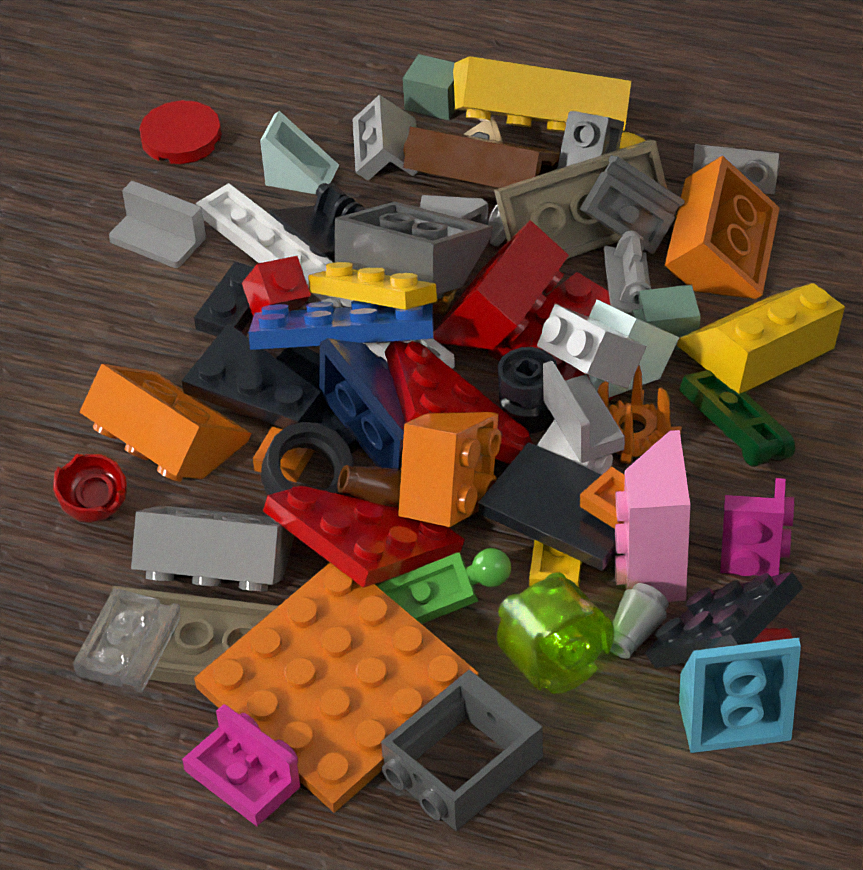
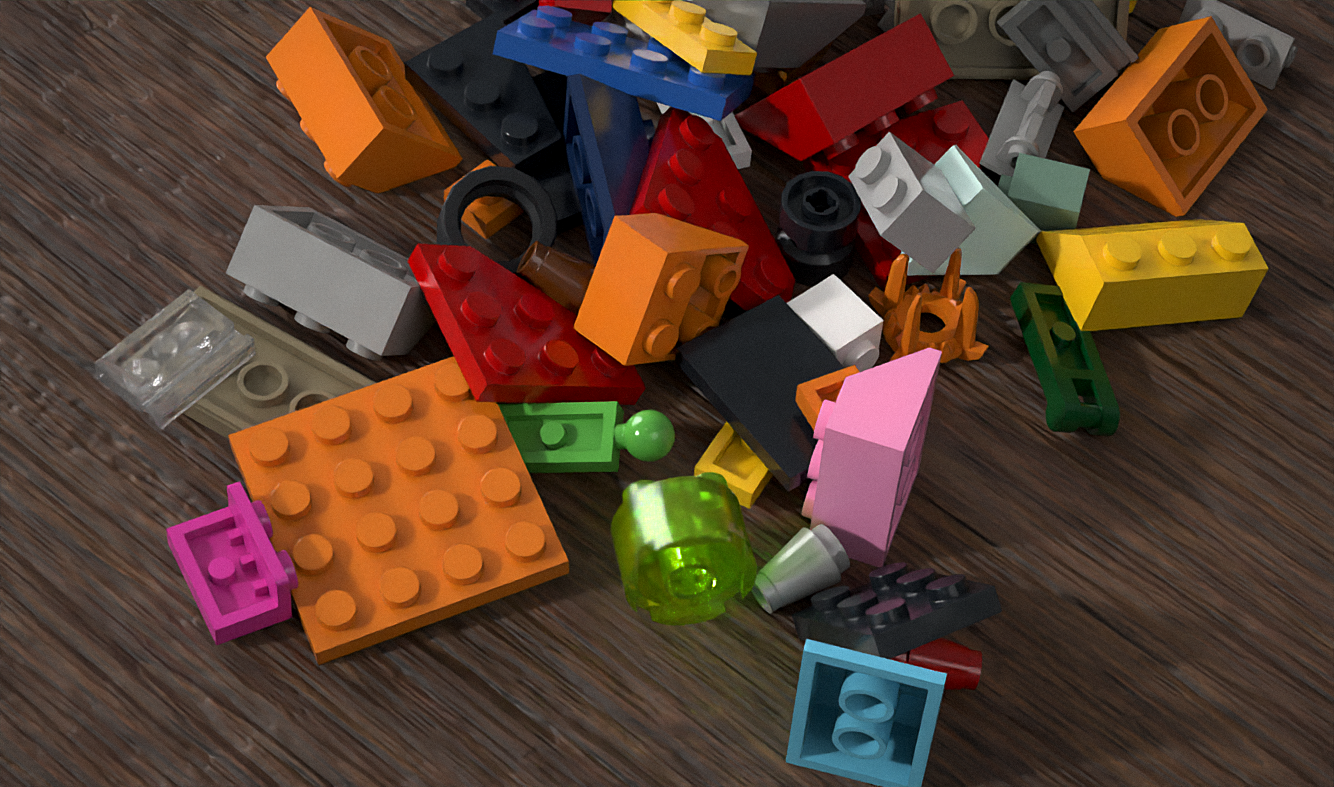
camera: 15 degrees right, 5 degrees up
(90, 487) = (231, 154): red hair -> none
(489, 712) = (486, 600): dark grey window -> none
(581, 415) = (858, 286): light grey panel -> none
(755, 532) = (1001, 517): dark pink bracket -> none

